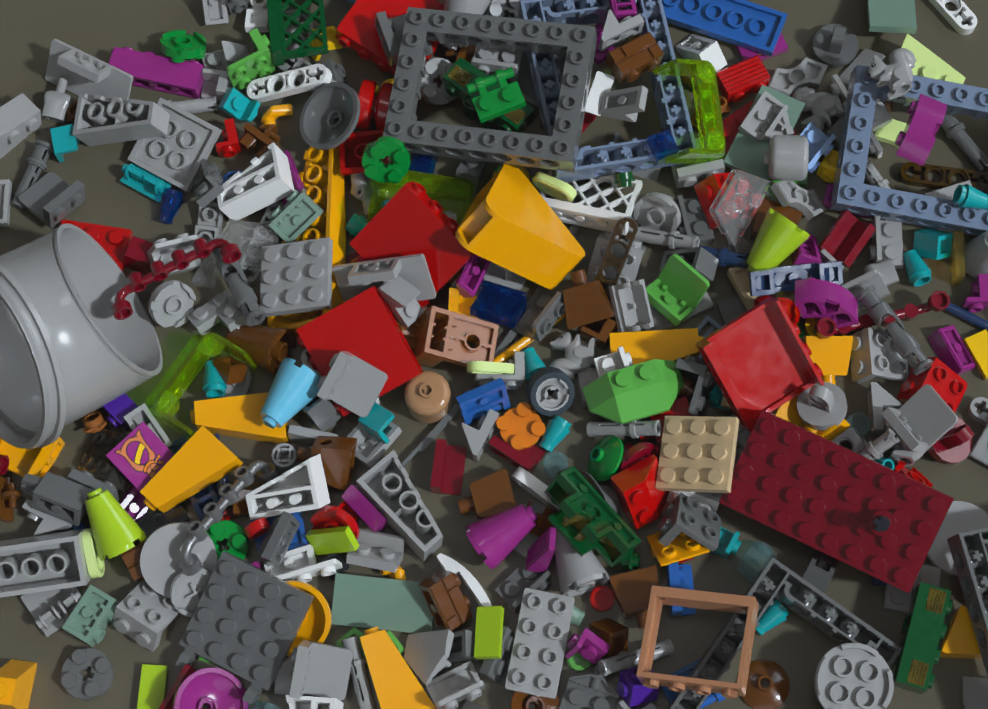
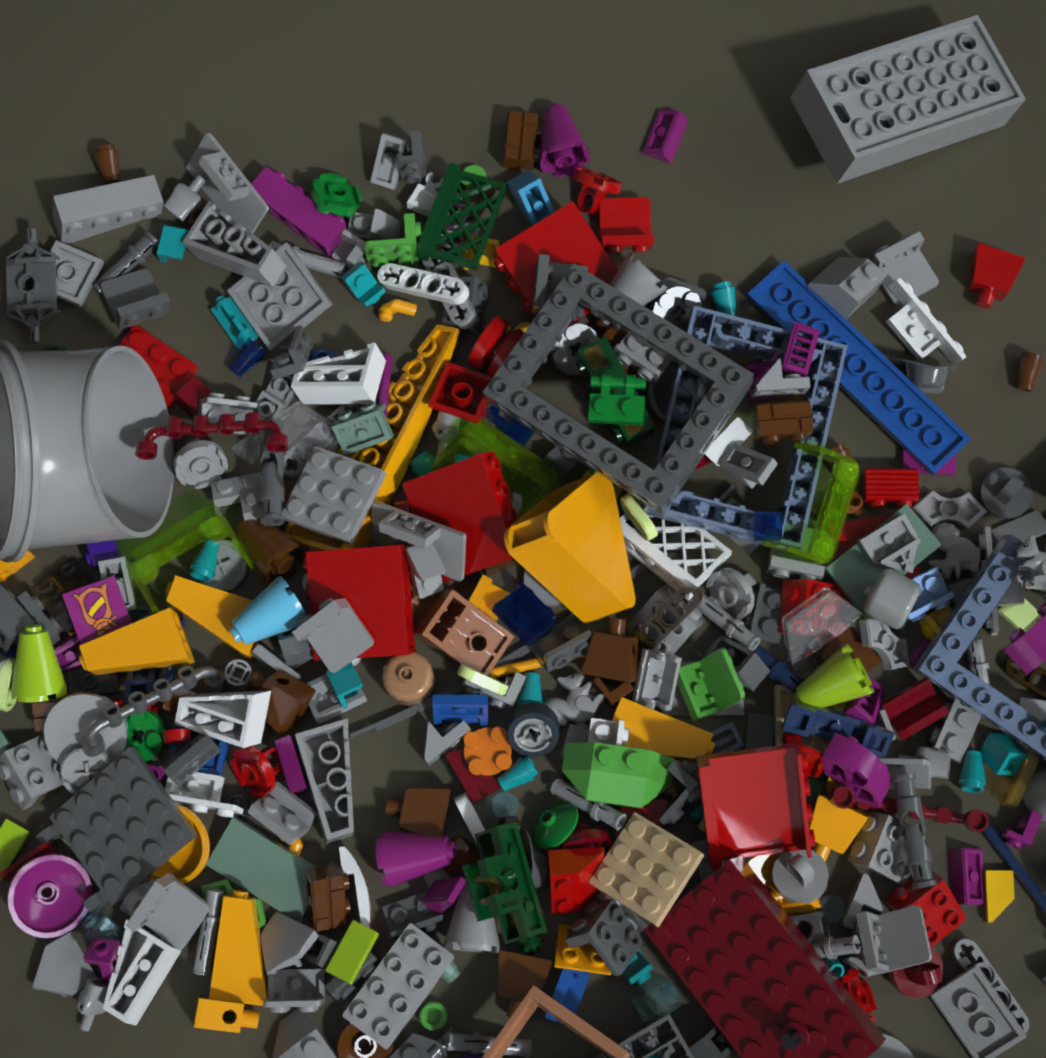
camera: 20 degrees right, 5 degrees up
(94, 422) = (71, 553): dark orange plate -> none
(230, 369) = (226, 559): reddish brown slope -> none
(231, 145) = (340, 312): red bracket -> none
(262, 138) = (361, 323): reddish brown hips -> none
(329, 116) = (444, 340): dark grey dish -> none
(332, 540) = (245, 783): lime tile -> none
(384, 172) = (477, 428): green plate -> none
(448, 469) = (395, 760): dark red panel -> none
(472, 276) = (507, 576): magenta slope -> none
(587, 645) = (444, 1009): magenta bracket -> none
(601, 598) = (484, 966): red tile -> none
(612, 633) = (471, 1009): reddish brown panel -> none
(623, 179) = (712, 542): dark green plate -> none
(702, 48) = (861, 440): white slope -> none

